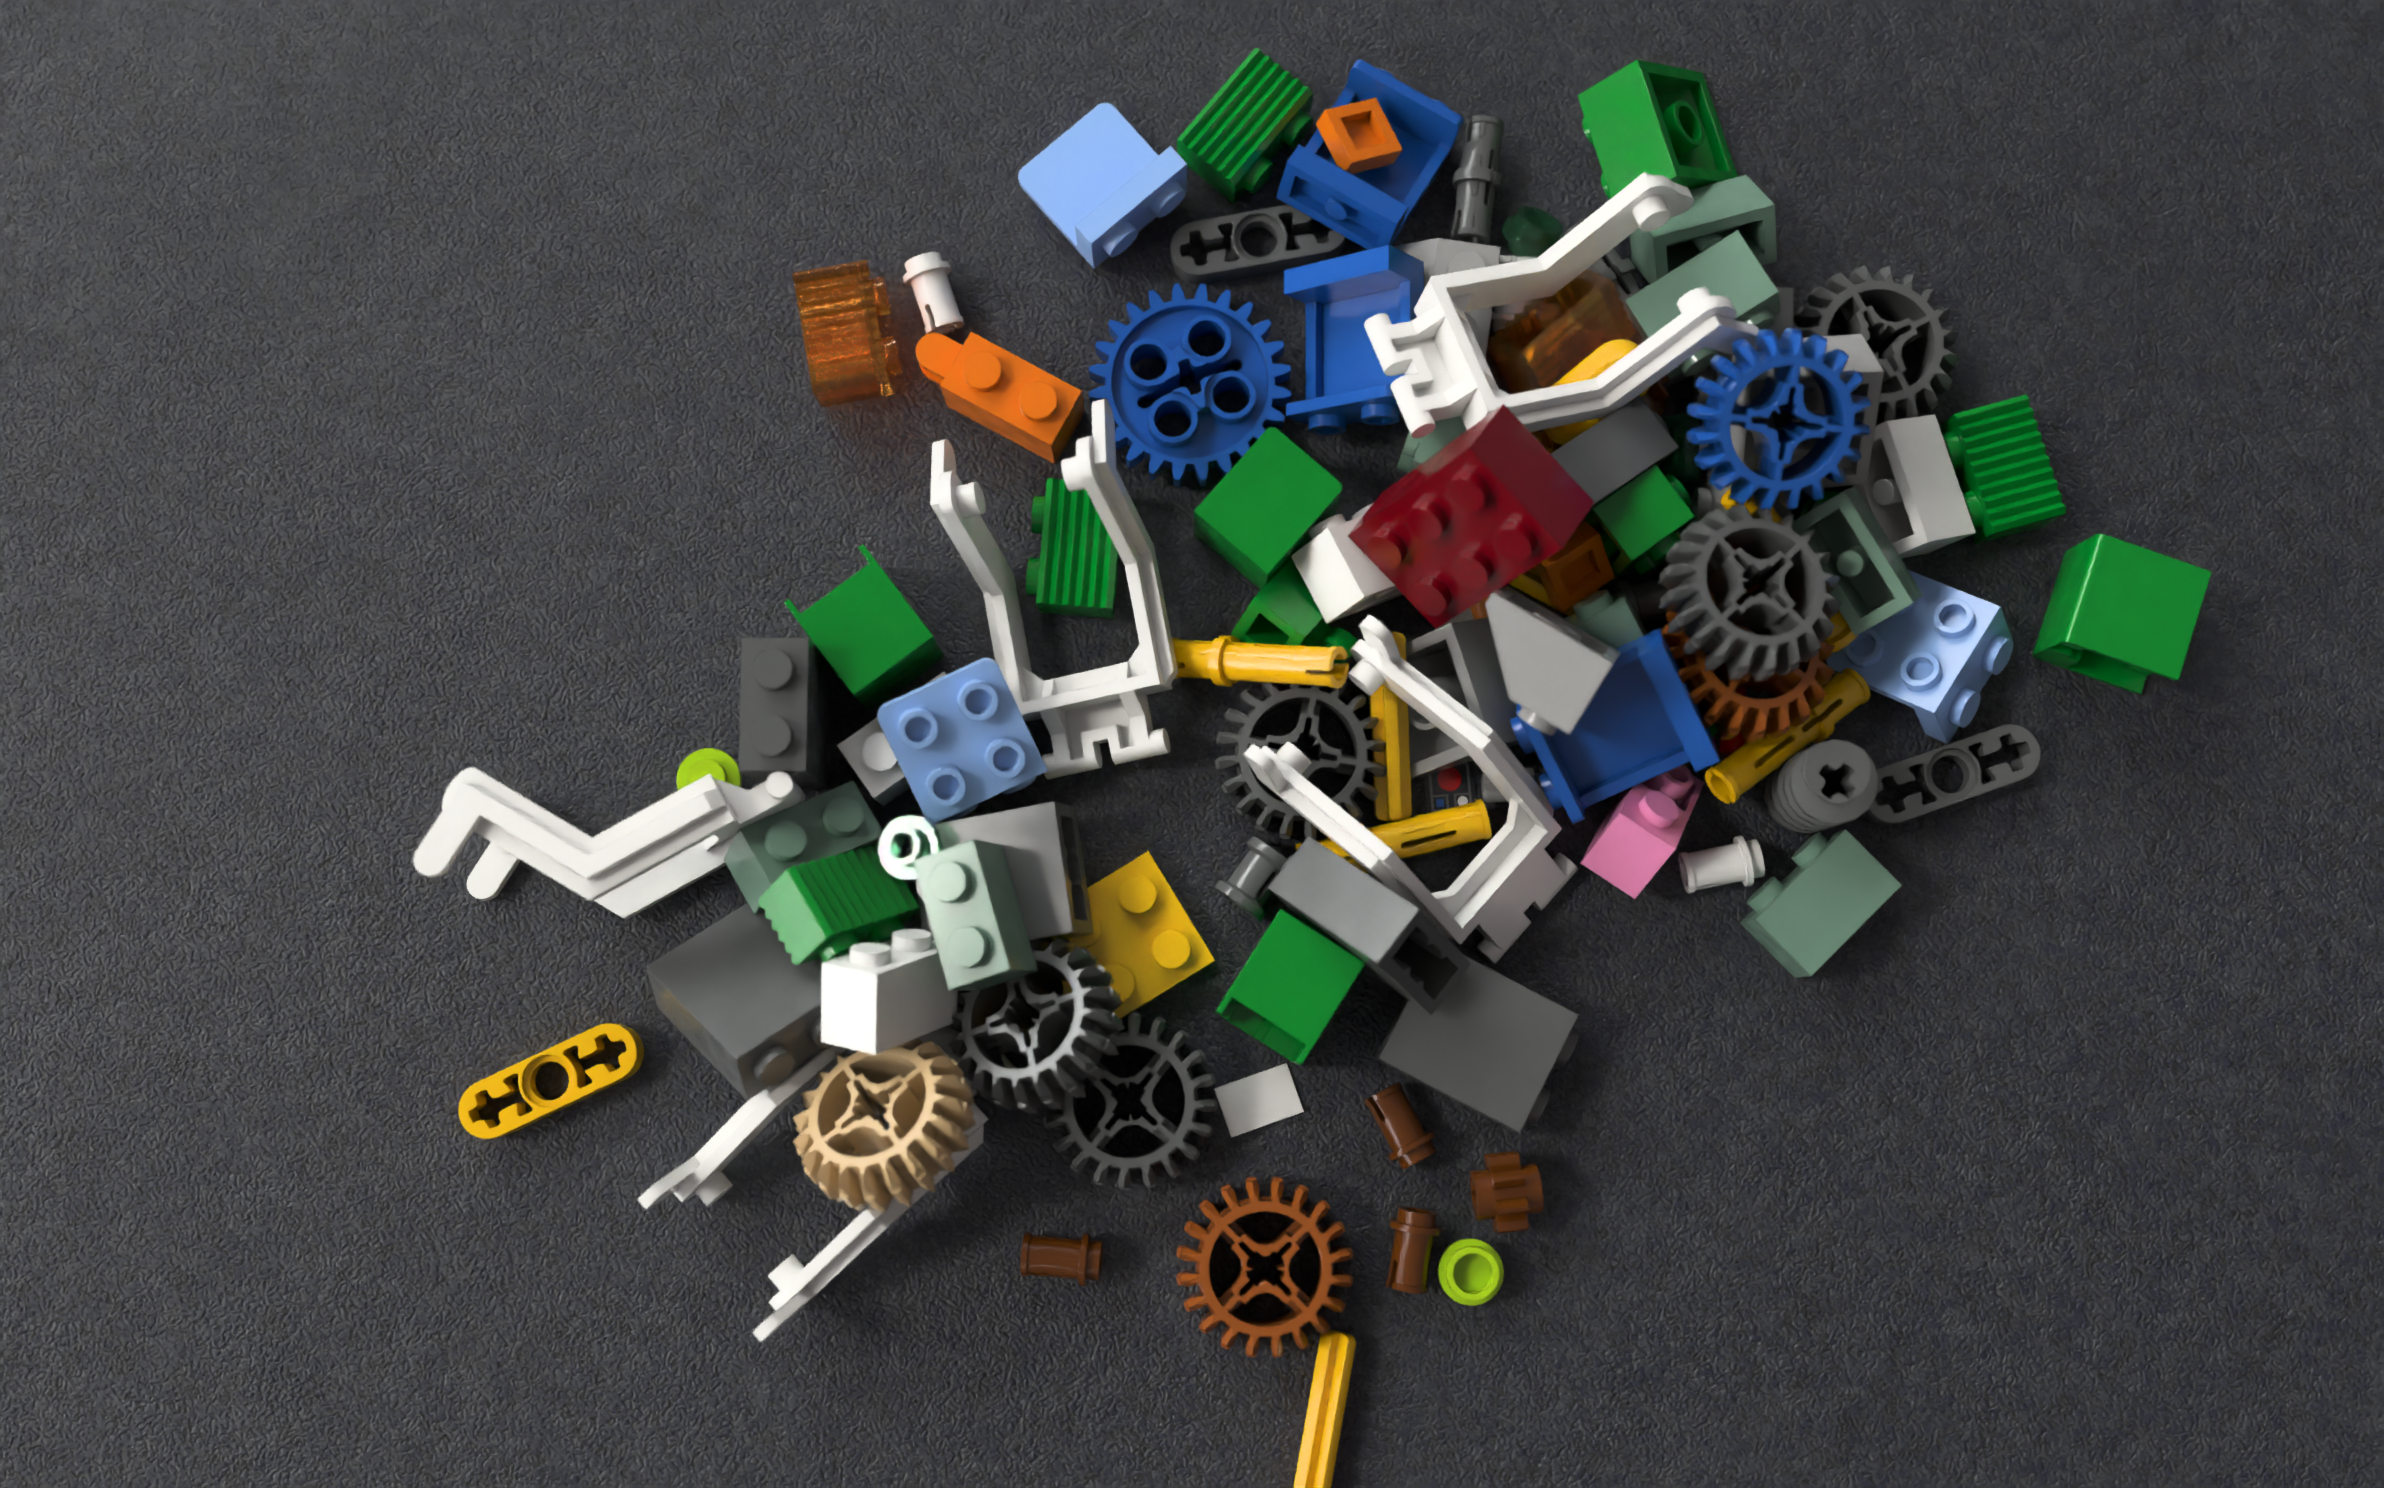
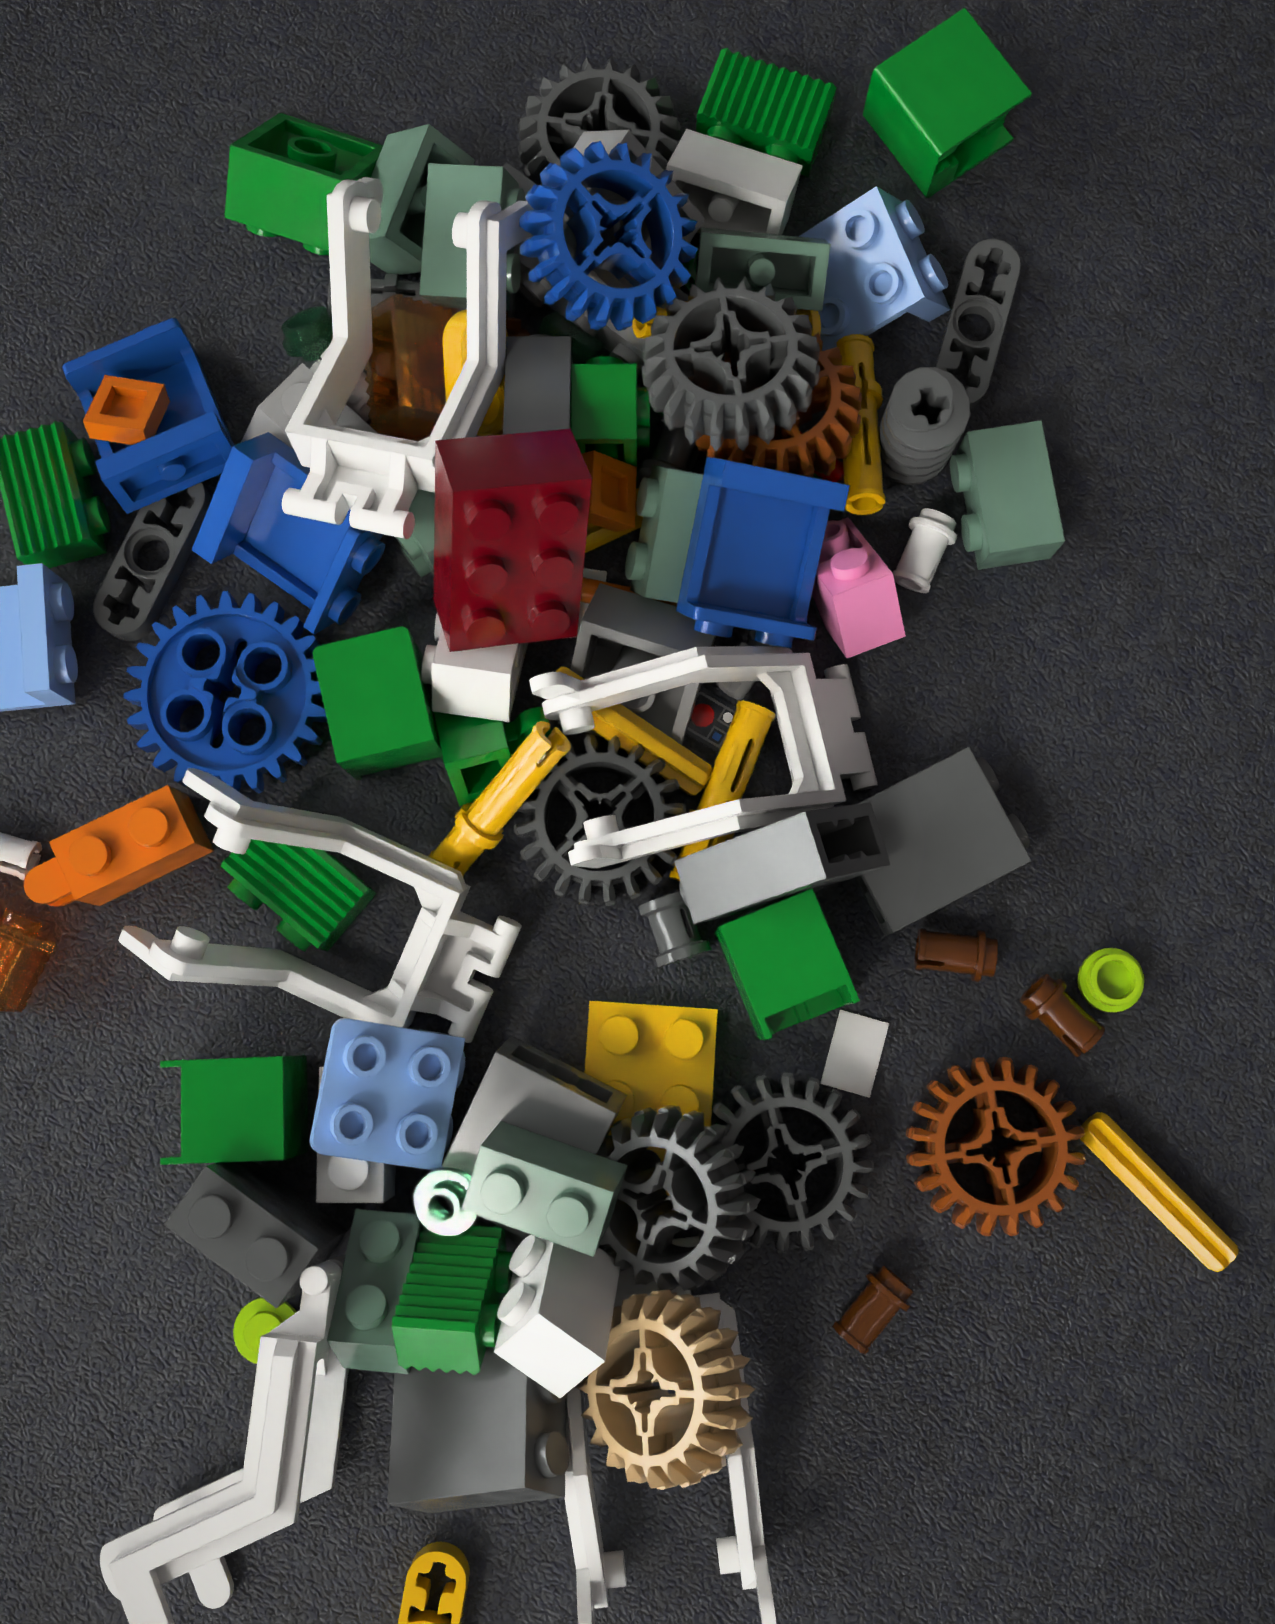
camera: 50 degrees left, 0 degrees up
(1477, 179) = (232, 344): dark grey pin -> none
(1506, 1192) = (1069, 905): reddish brown gear -> none
(1546, 661) = (676, 561): light grey slope -> none

